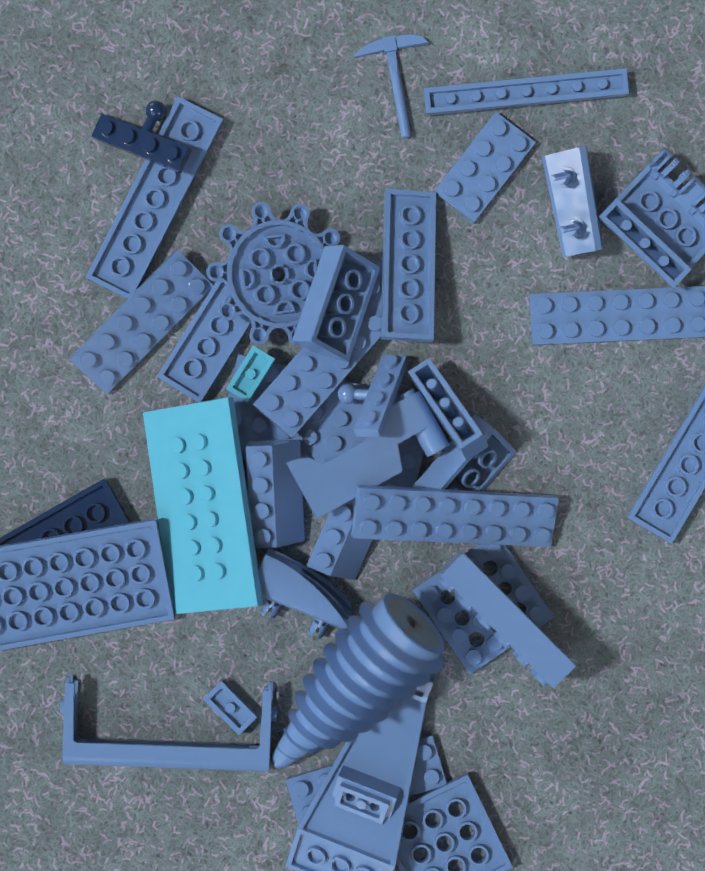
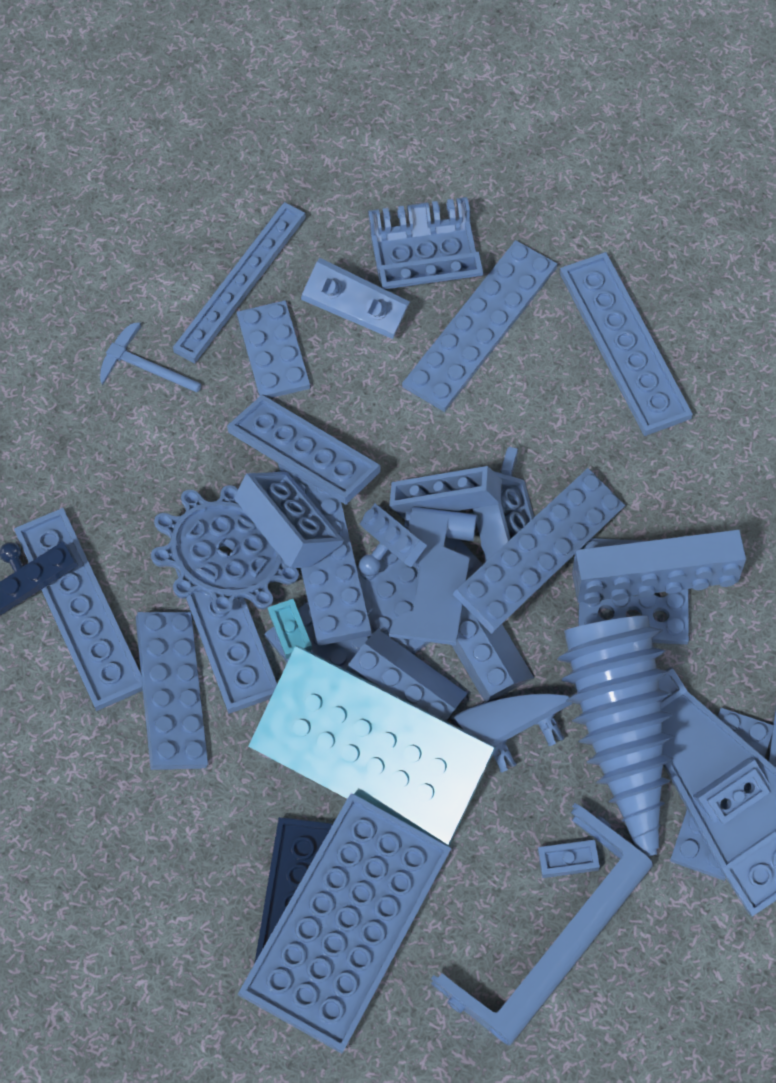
camera: 50 degrees left, 25 degrees down
(518, 432) = (509, 461): none -> medium blue tile

